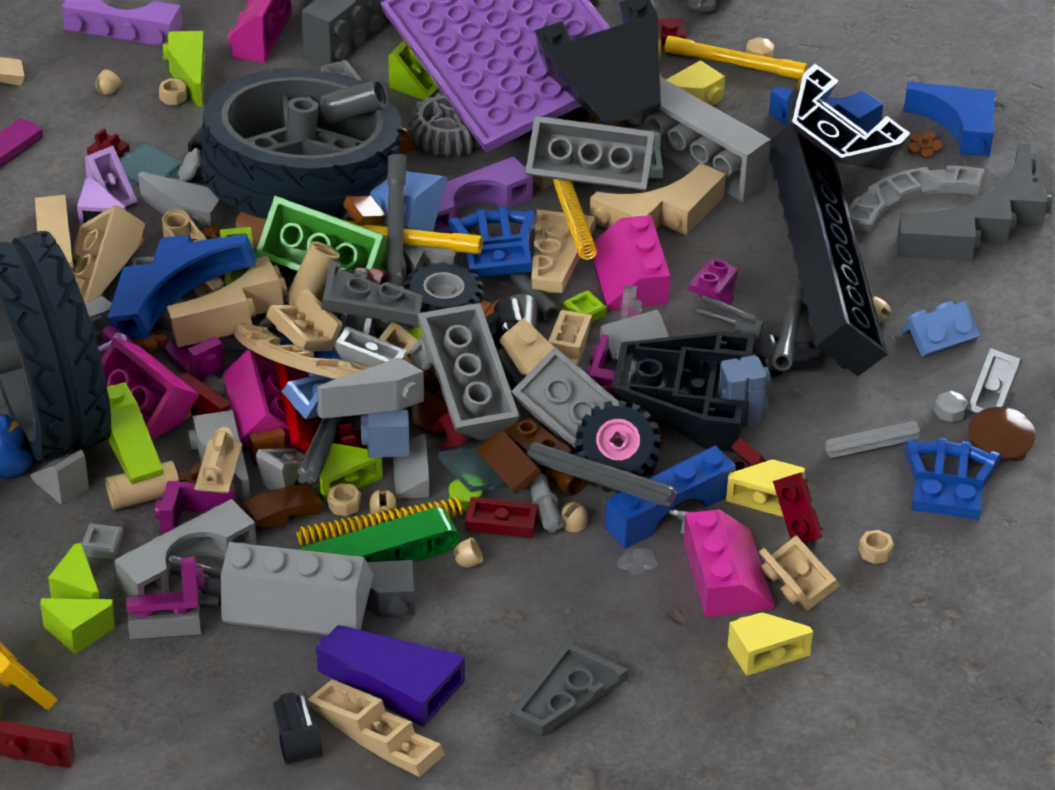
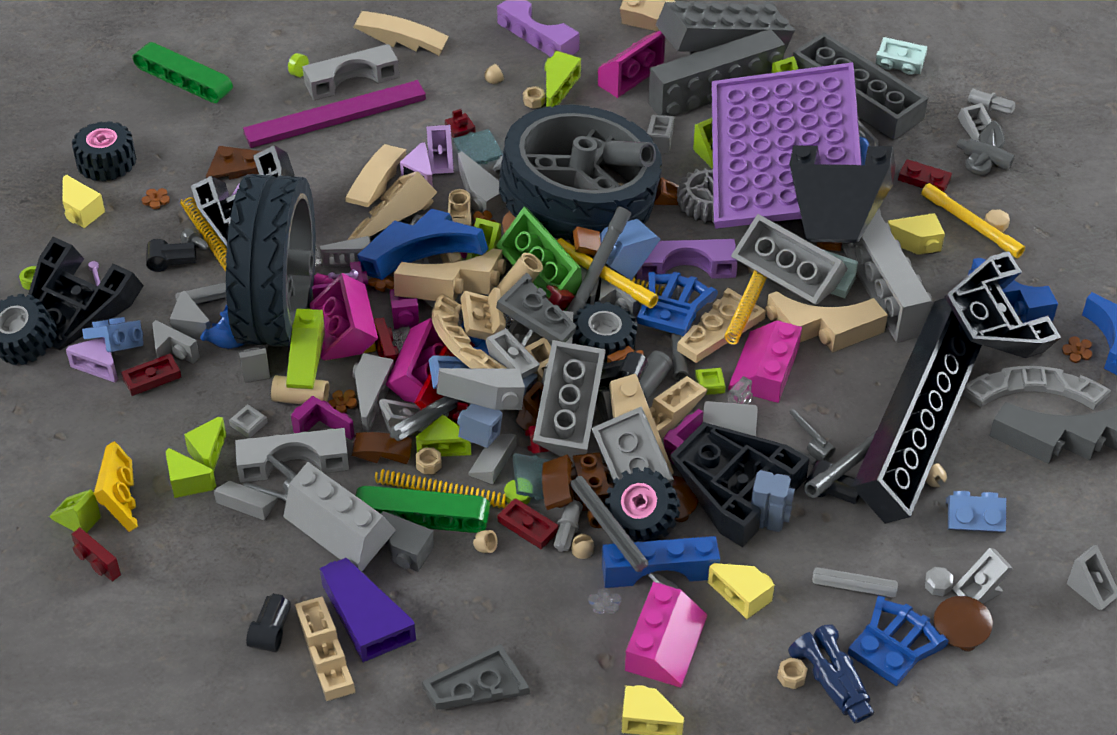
camera: 30 degrees right, 5 degrees up
(175, 602) = (260, 490): magenta bracket -> none
(219, 462) = (350, 397): tan hinge -> none
(267, 440) = (403, 393): dark orange tile -> none
(382, 496) = (459, 475): tan hinge -> none
(716, 280) = (815, 399): magenta bracket -> none
(746, 455) = (742, 554): dark red tile -> none
(797, 508) = (747, 630): dark red hinge -> none
(800, 572) = (713, 668): tan bracket -> none
(917, 527) = (837, 677): none -> dark blue piece

